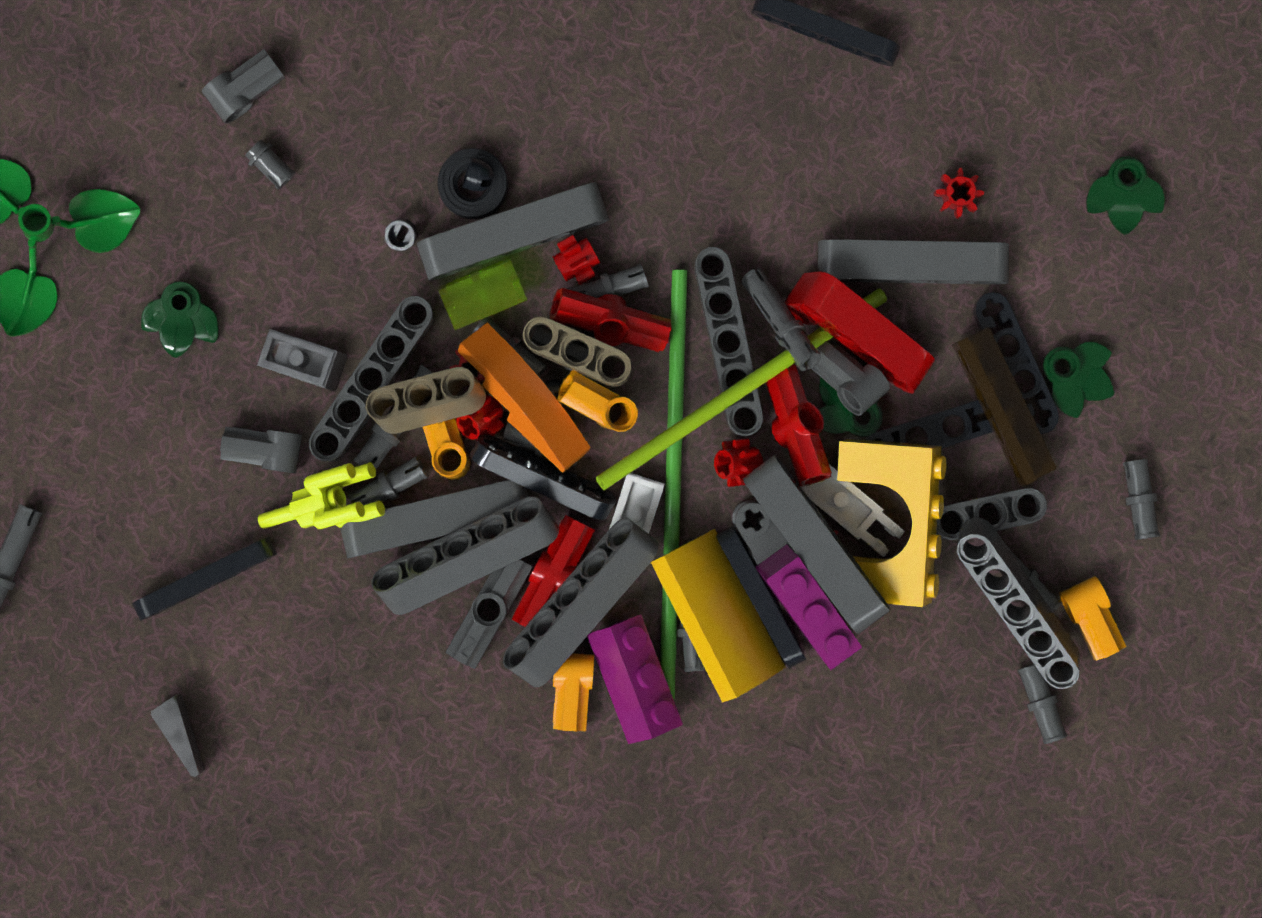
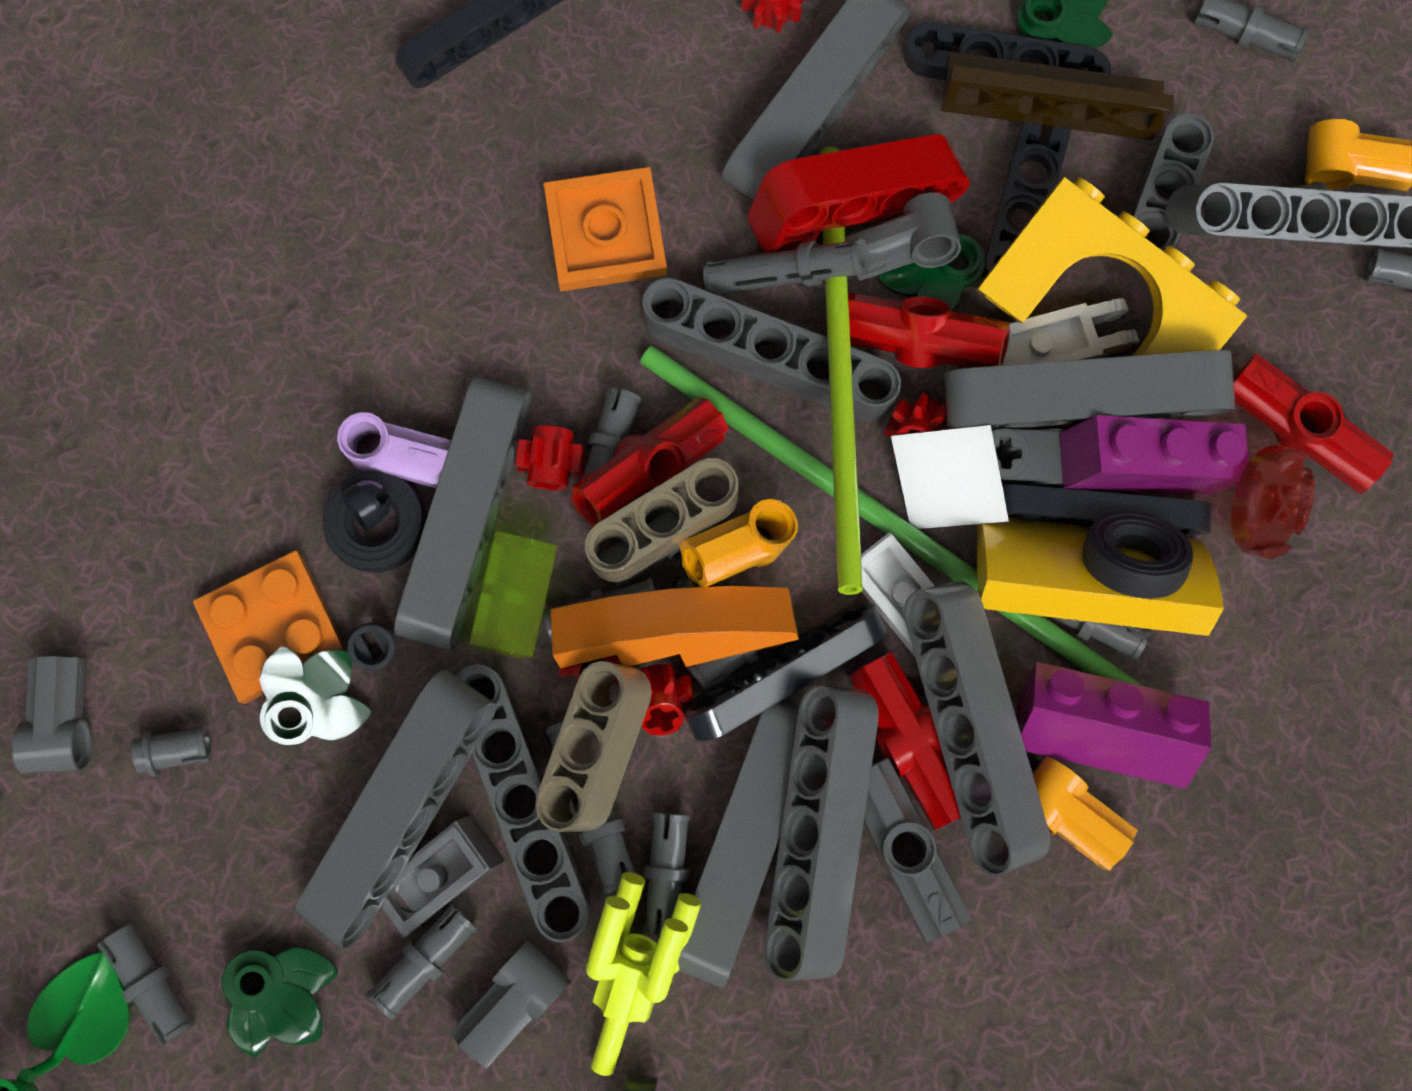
camera: 55 degrees left, 10 degrees down
(139, 244) = (145, 984): none -> dark grey pin
(252, 384) = (421, 961): none -> dark grey pin
(321, 314) = (395, 809): none -> dark grey beam
(355, 220) = (314, 689): none -> plate
(373, 167) = (260, 615): none -> orange plate
(444, 438) = (654, 764): light orange piece -> none
(521, 172) = (400, 453): none -> lavender piece
(717, 497) = (950, 477): none -> white sticker
(719, 637) = (1129, 574): none -> black tyre
(739, 193) = (605, 229): none -> orange plate
(829, 692) = (1272, 501): none -> clear red tile
(895, 713) = (1336, 442): none -> red piece

